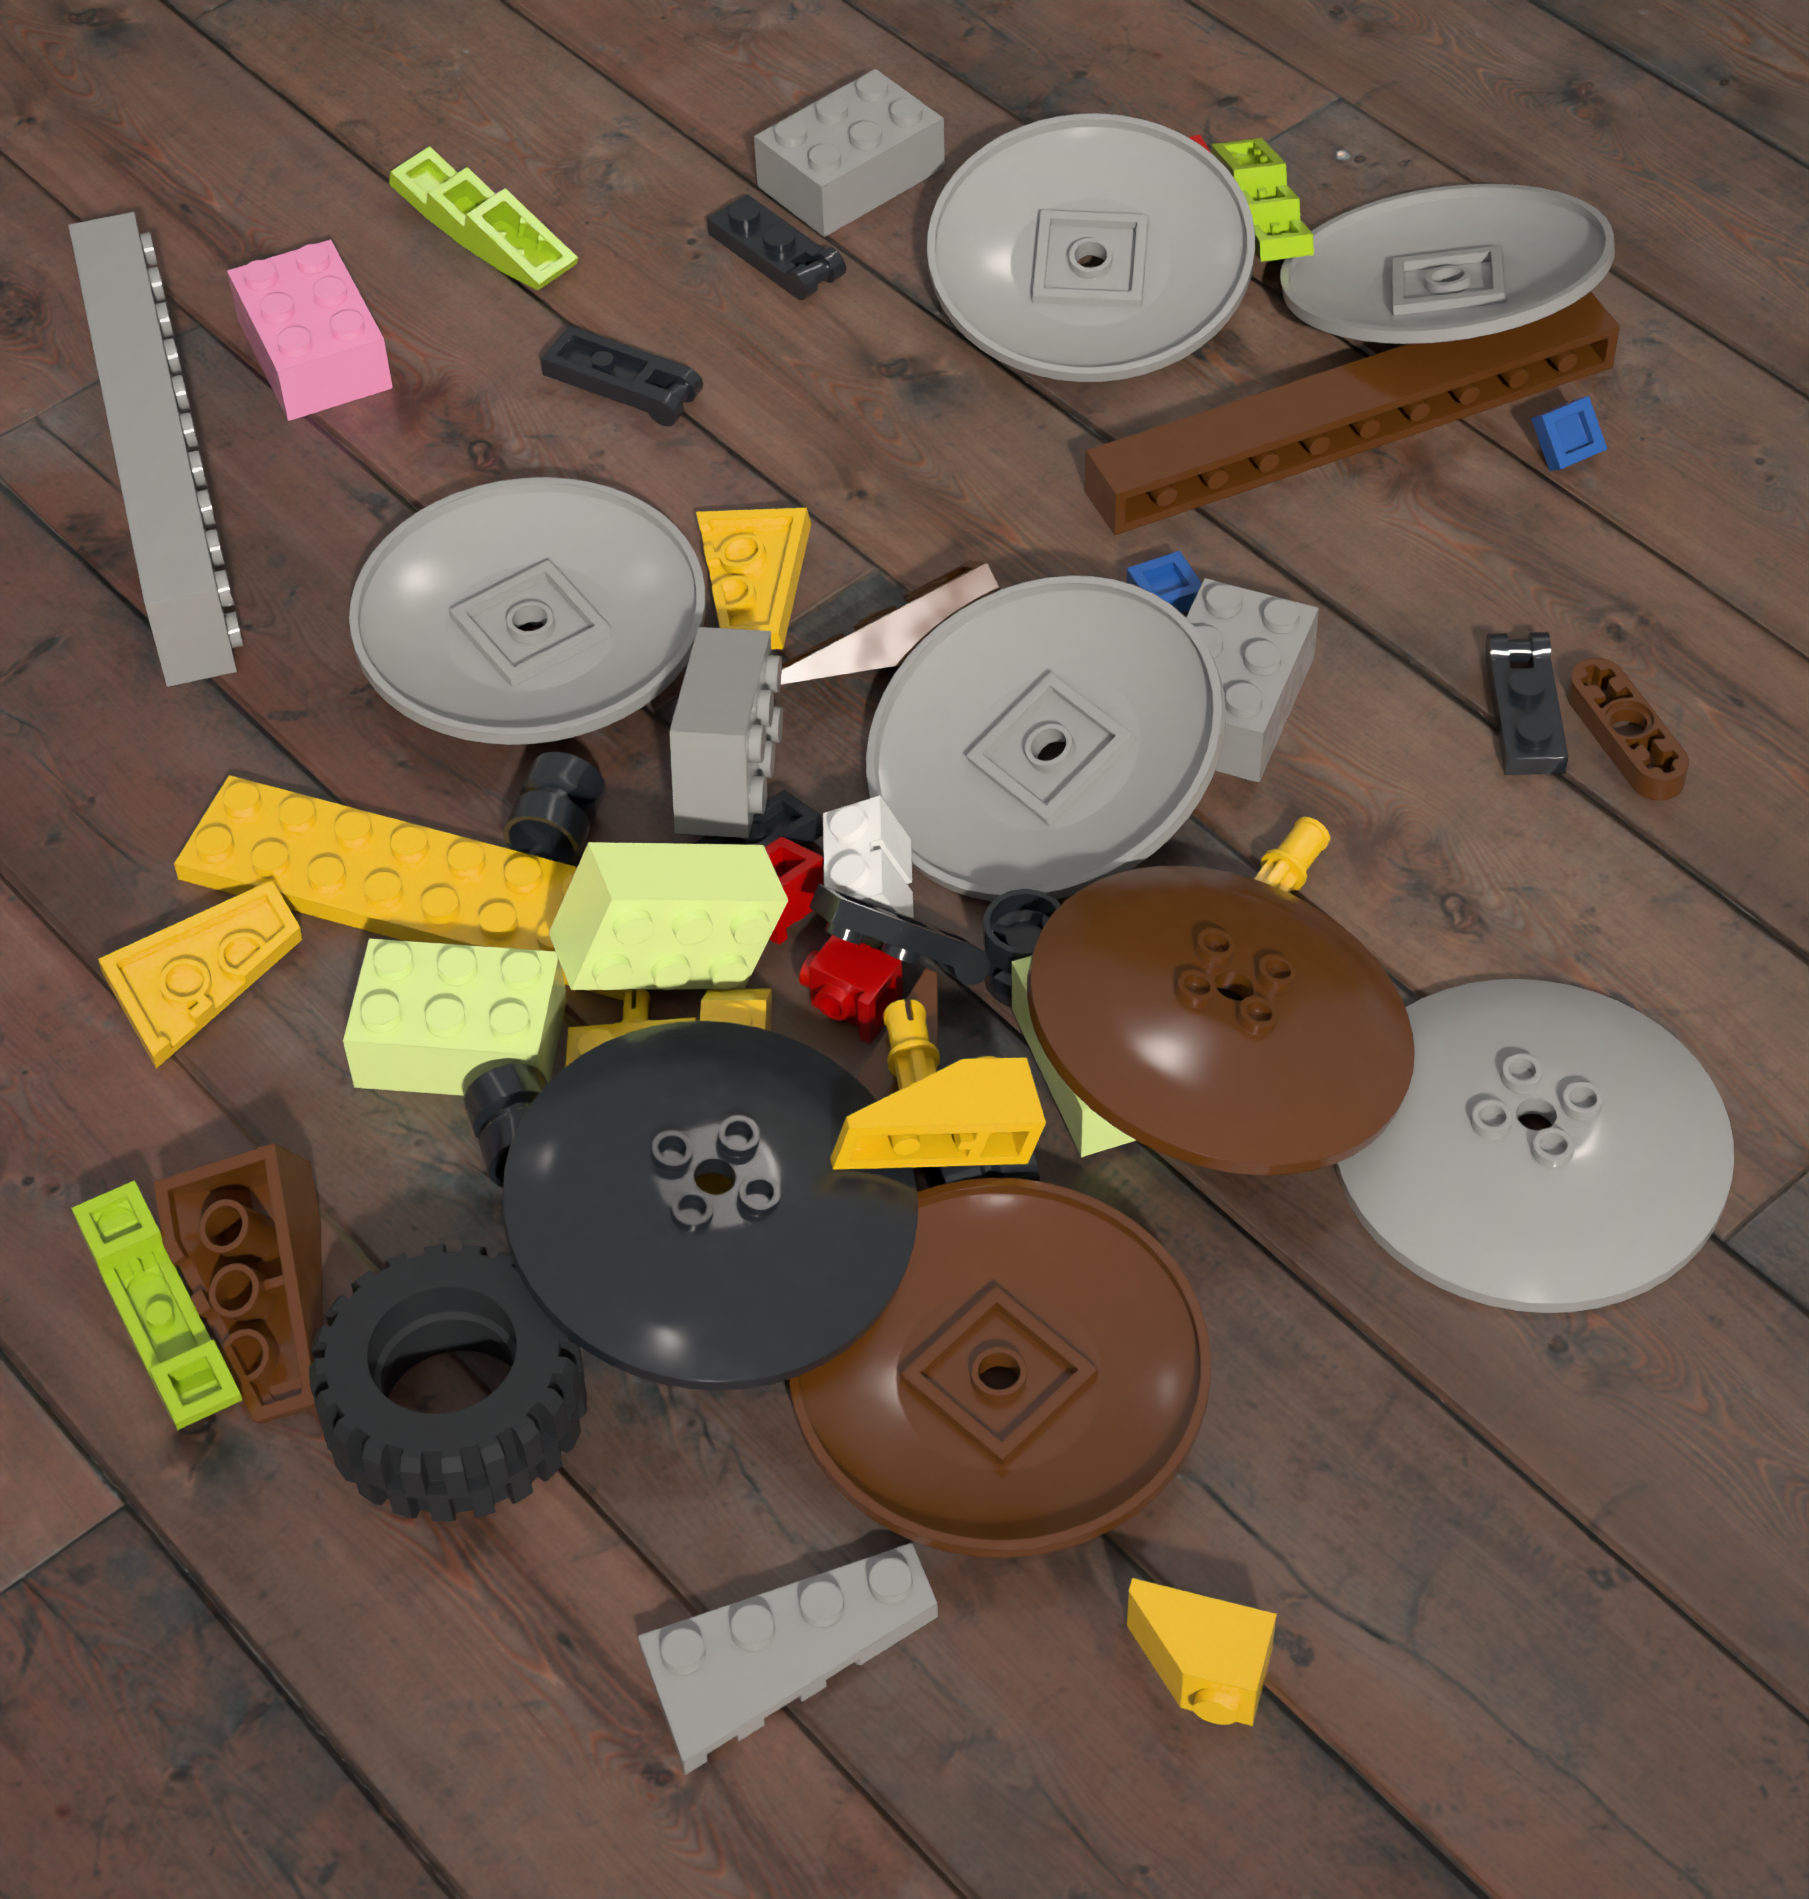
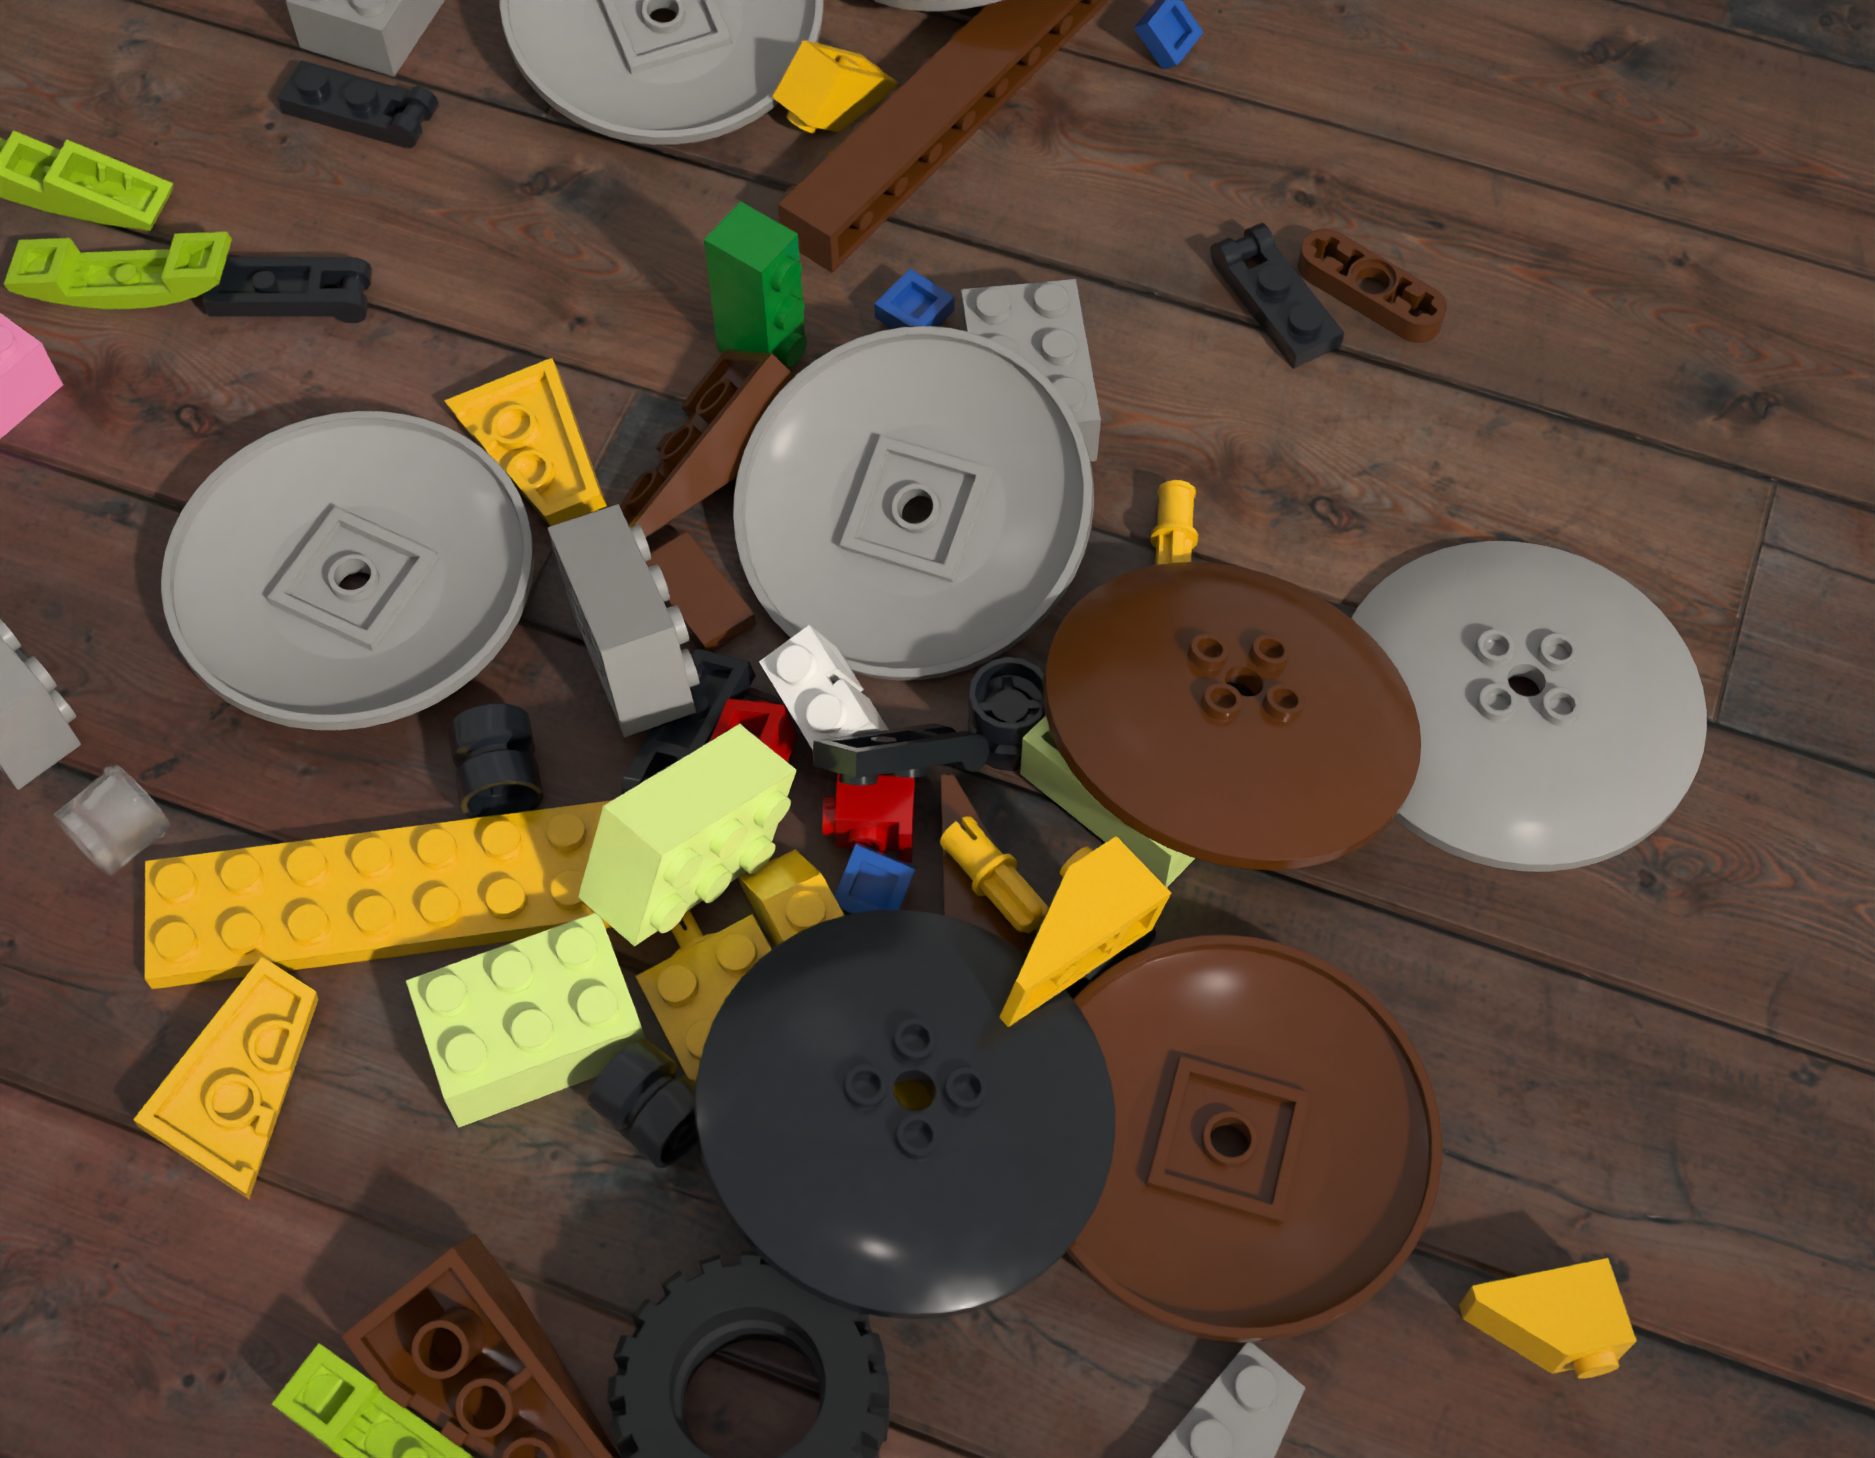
camera: 30 degrees left, 10 degrees up
(220, 730) = (112, 820): none -> clear piece
(444, 300) = (118, 279): none -> lime slope
(818, 749) = (705, 597): none -> reddish brown tile
(822, 1030) = (873, 881): none -> blue plate
(1009, 502) = (756, 285): none -> green brick
(1204, 370) = (830, 87): none -> yellow slope

